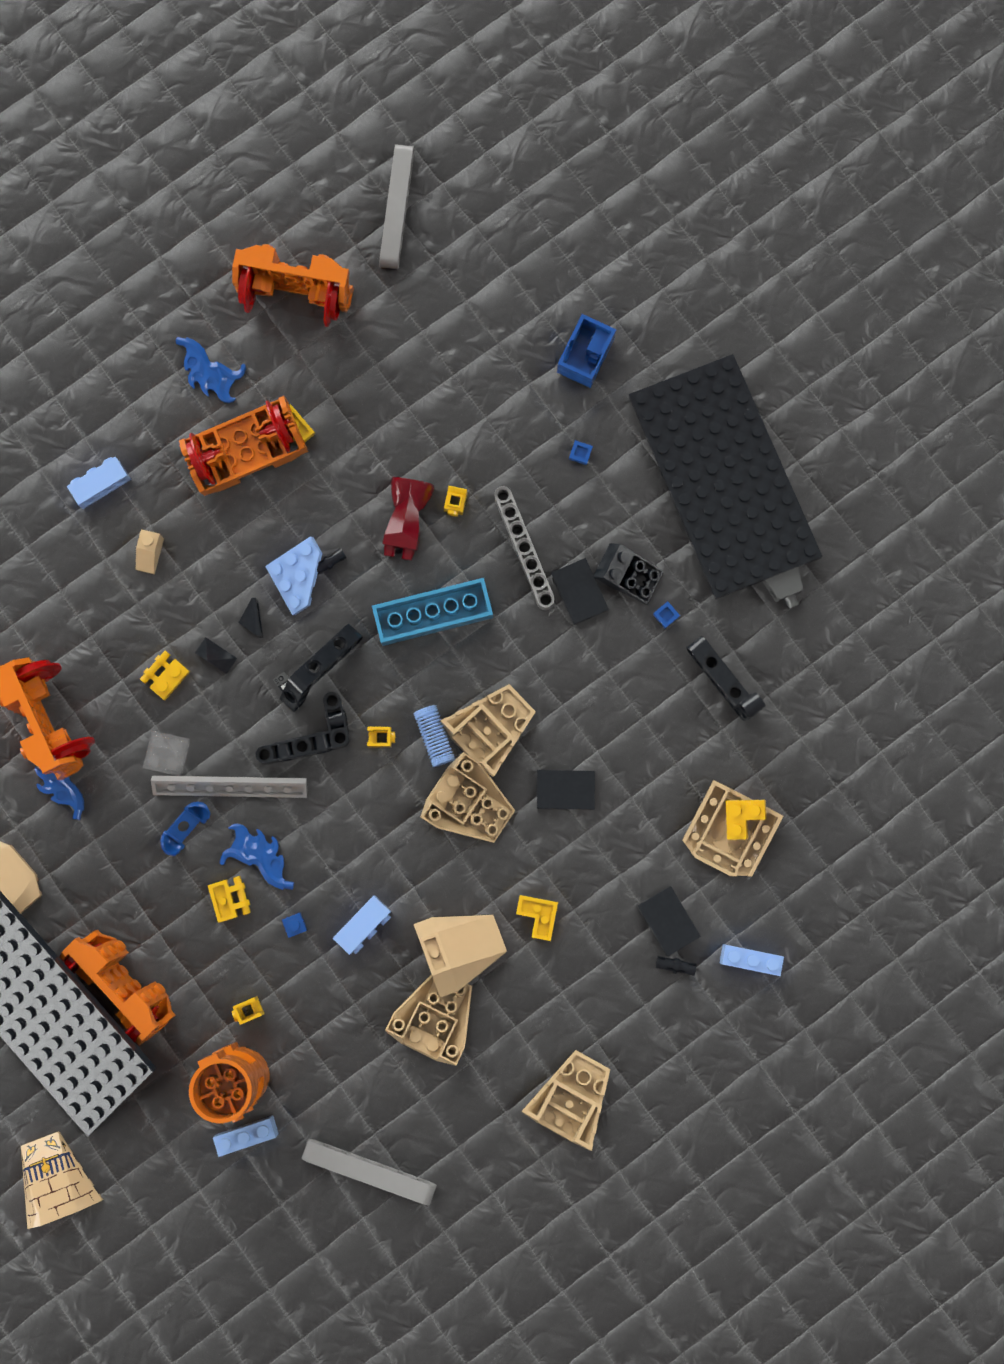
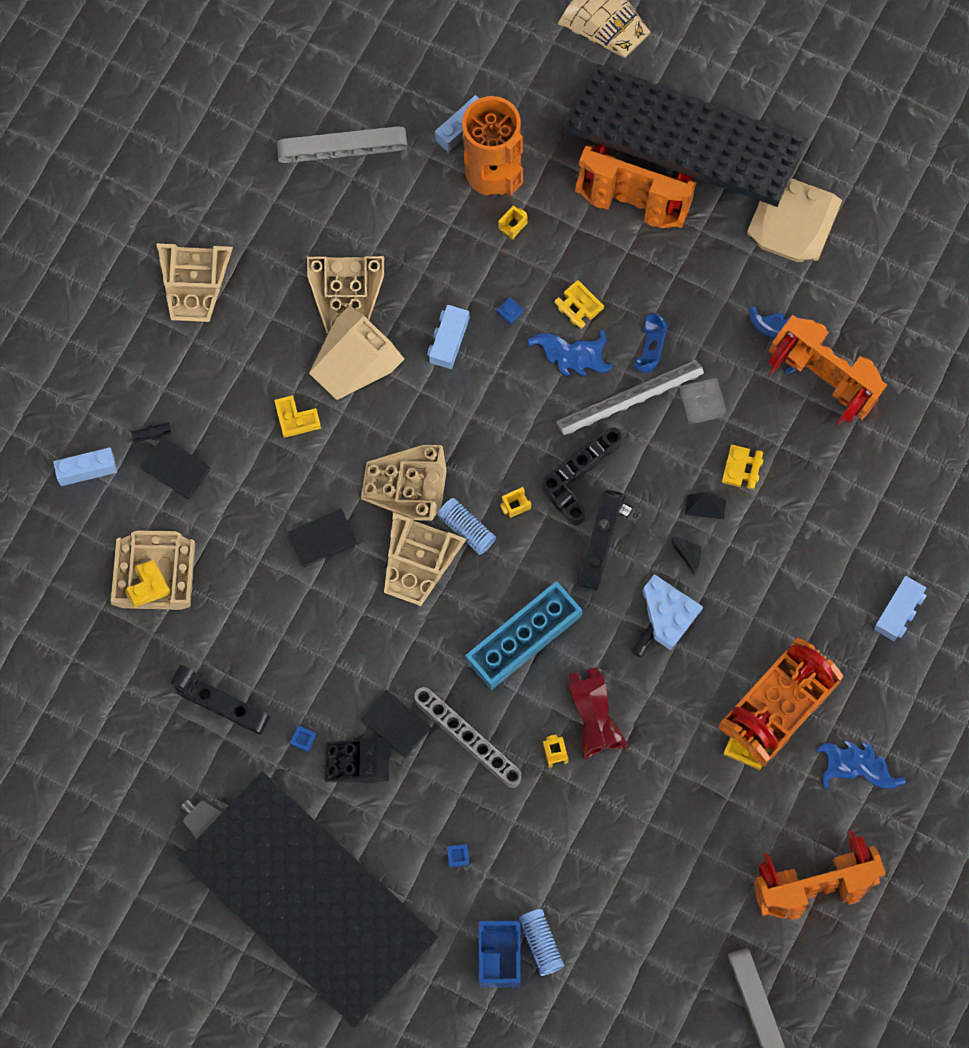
camera: 155 degrees right, 10 degrees down
(148, 551) = (818, 569): tan slope -> none
(551, 324) = (542, 936): none -> light blue piece

